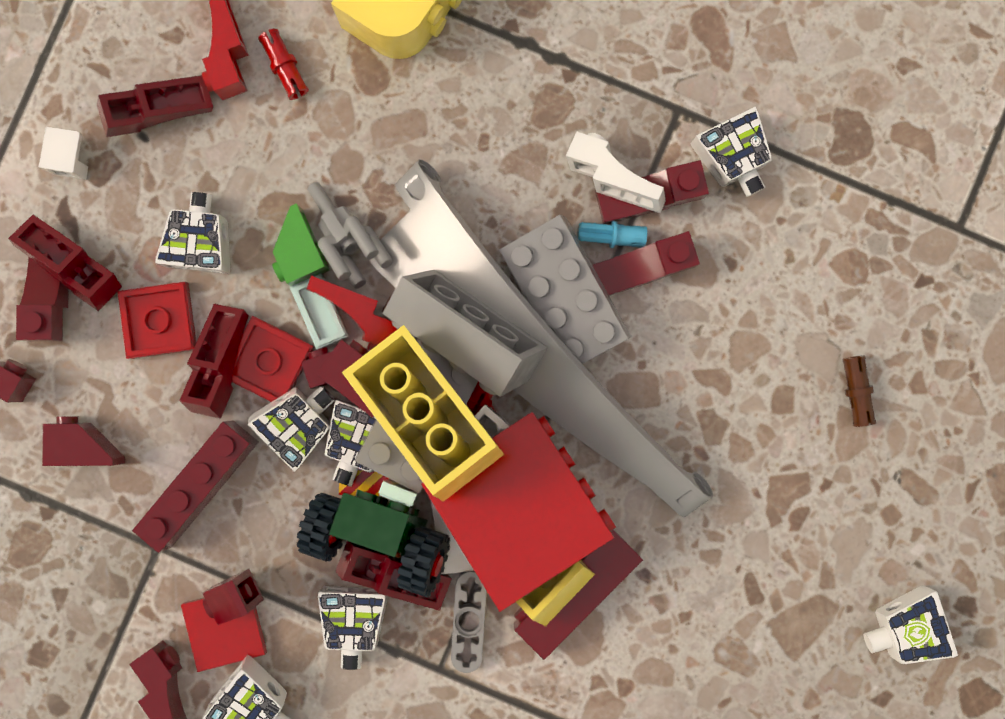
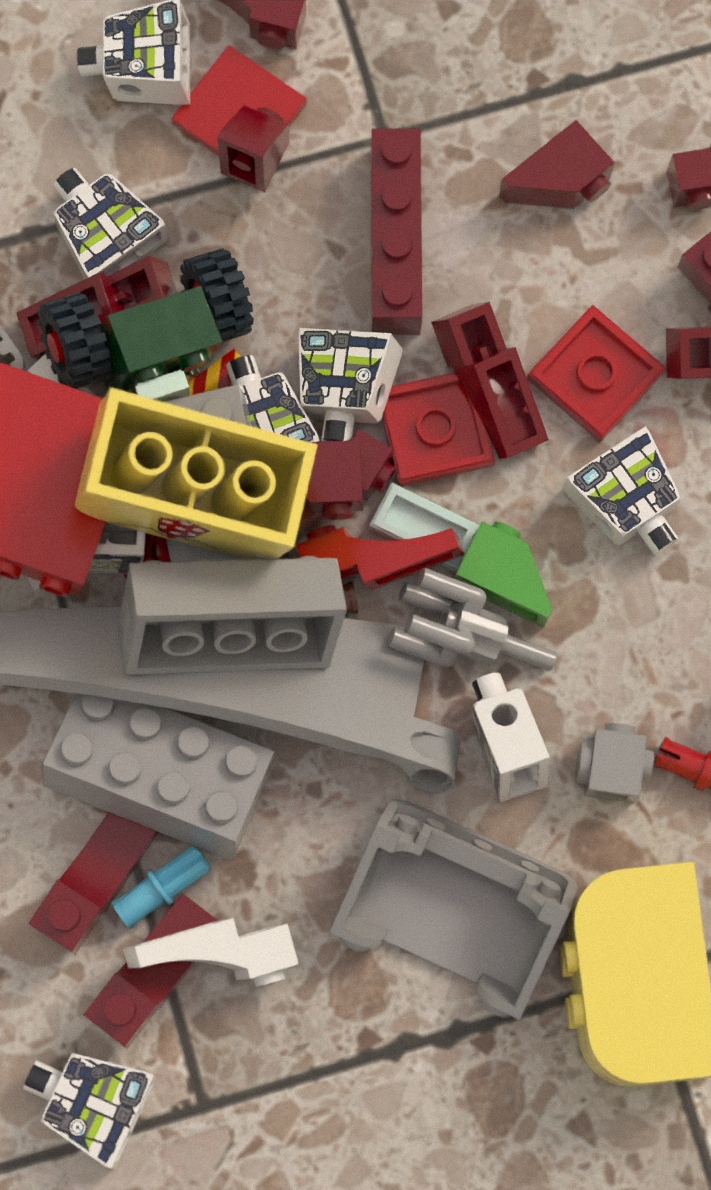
camera: 140 degrees right, 10 degrees down
(327, 104) = (614, 763): none -> light grey brick
(374, 146) = (509, 739): none -> white torso
(464, 96) = (456, 904): none -> light grey windscreen

